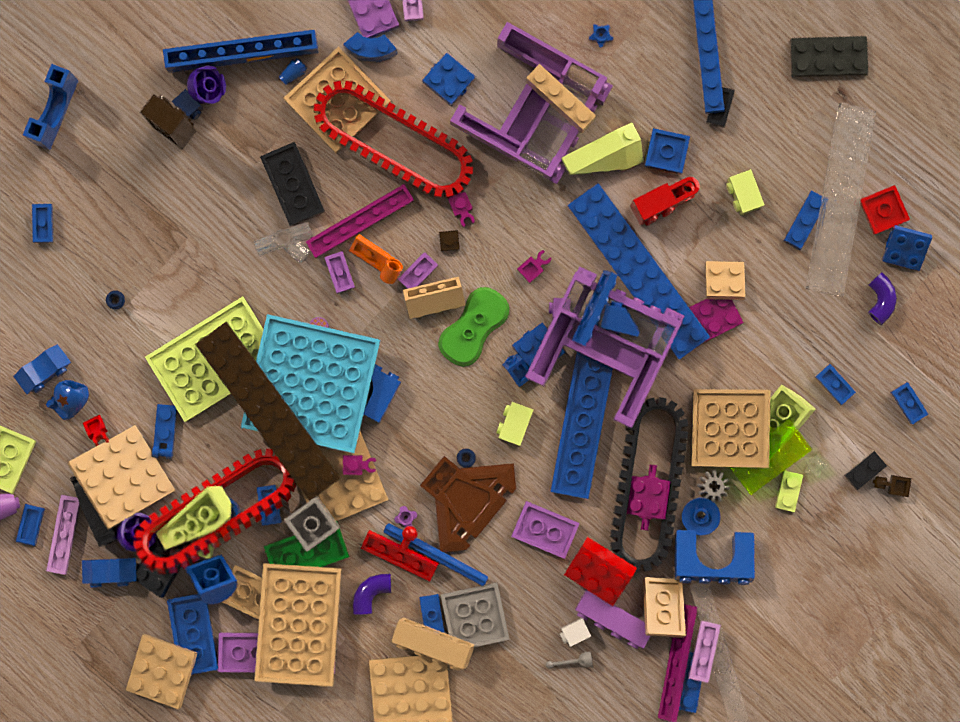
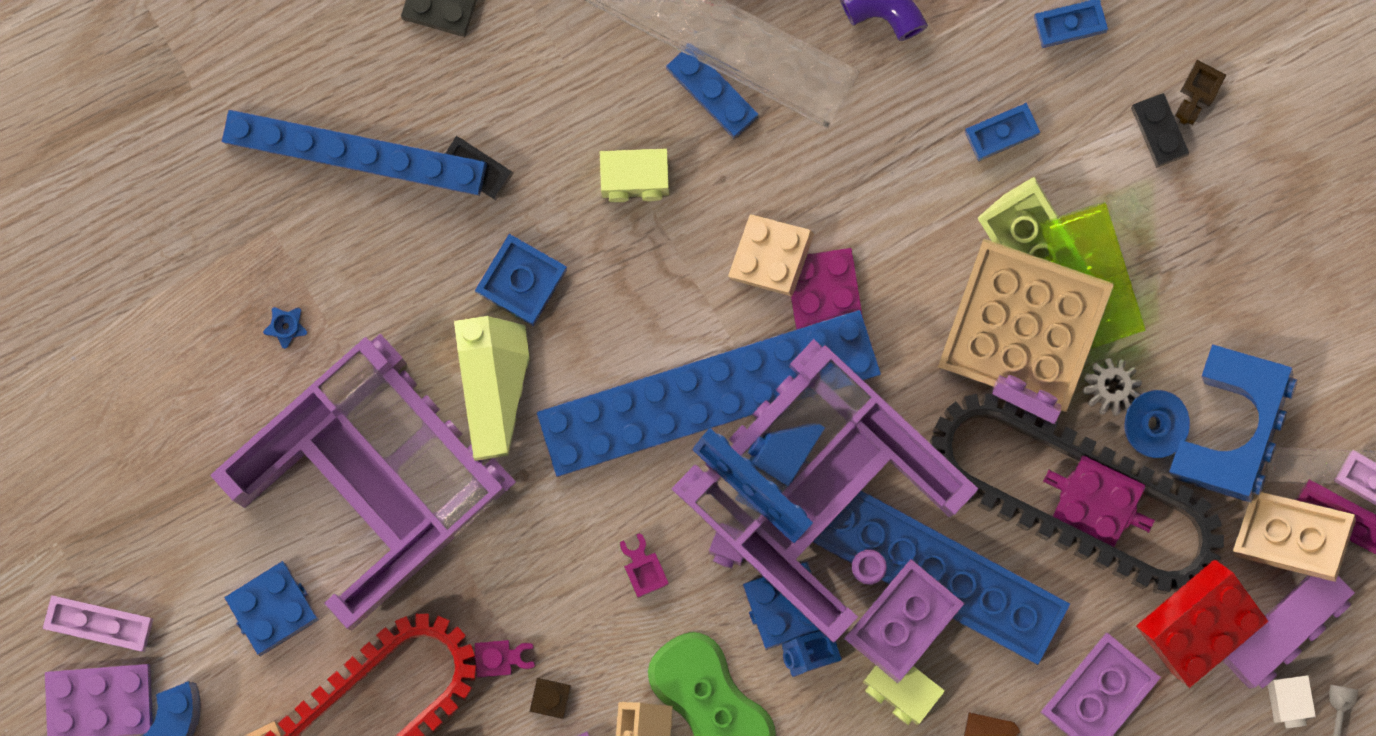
camera: 65 degrees left, 5 degrees down
(549, 412) = (904, 621): none -> medium lavender plate
(560, 98) = (373, 427): tan brick -> none
(572, 385) = (869, 567): none -> medium lavender tile
(663, 200) = (604, 312): red brick -> none
(692, 434) = (1040, 404): none -> medium lavender plate
(789, 491) = (1157, 265): yellowish green plate -> none

